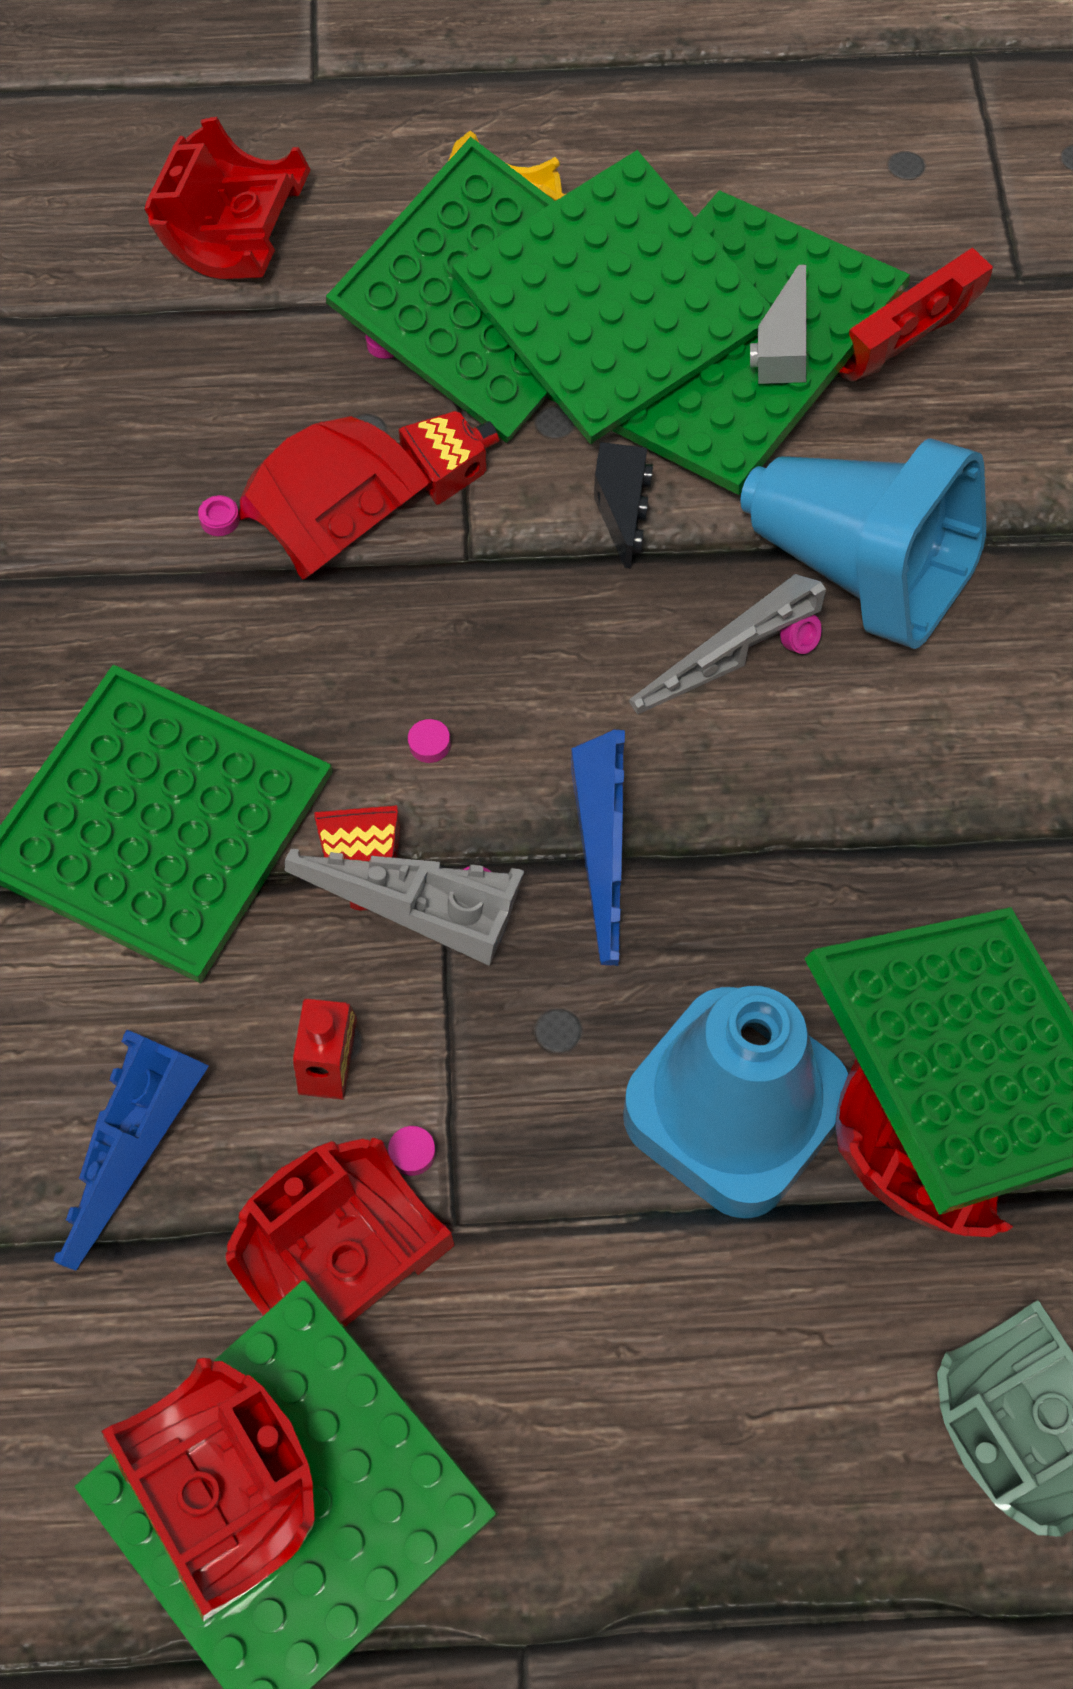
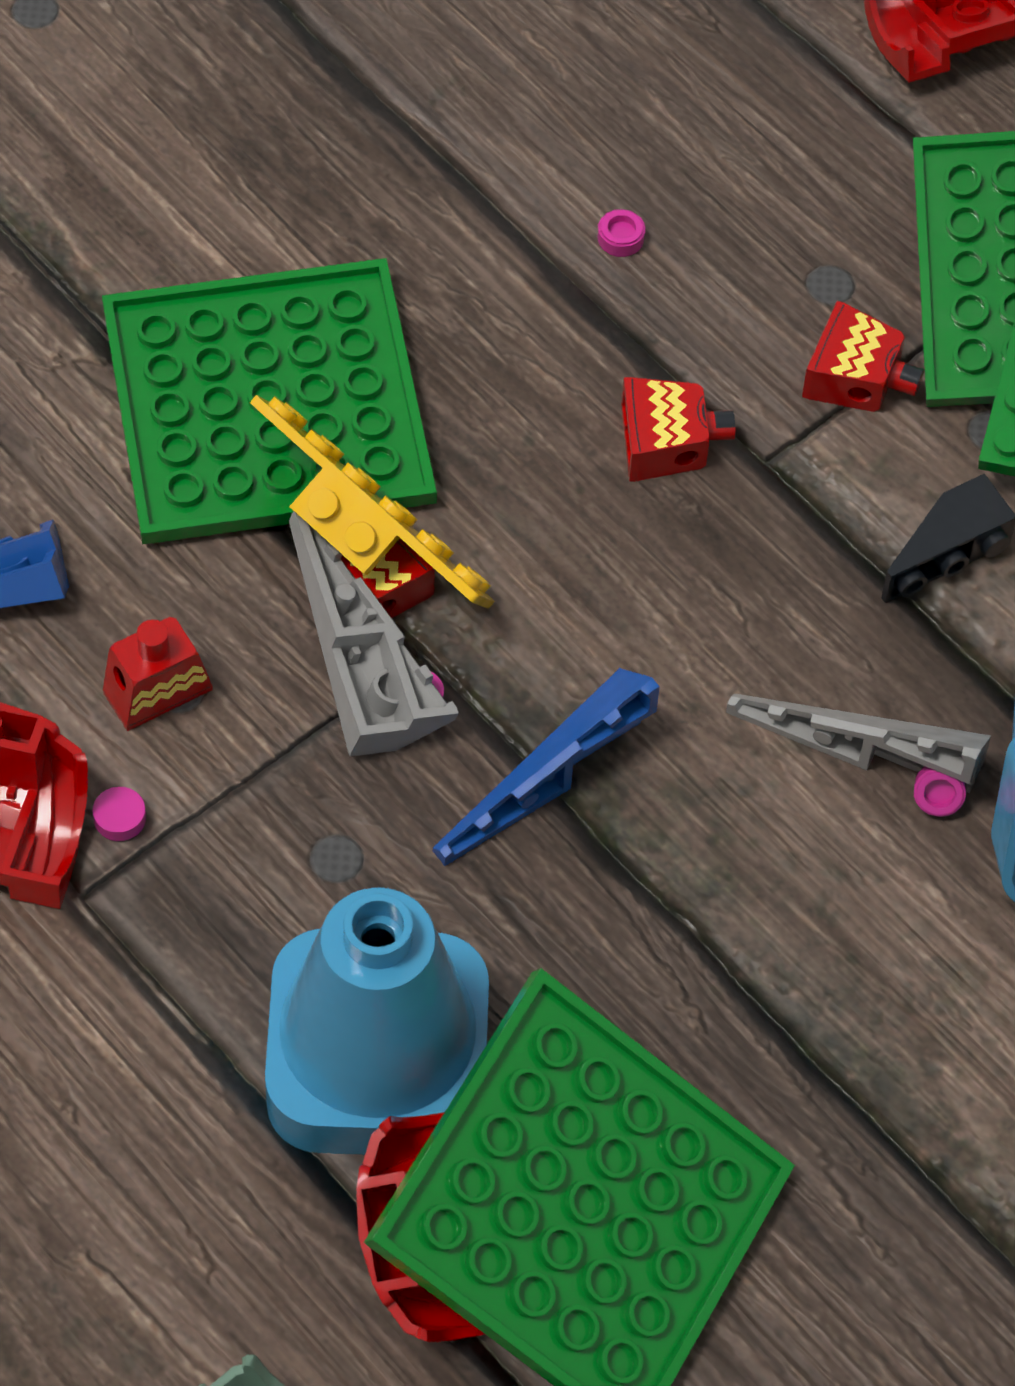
camera: 50 degrees right, 5 degrees down
(324, 827) = (353, 518): none -> yellow bracket
(329, 488) = (722, 294): red piece -> none
(399, 593) = (669, 427): none -> red torso
(429, 740) = (538, 558): dark pink tile -> none

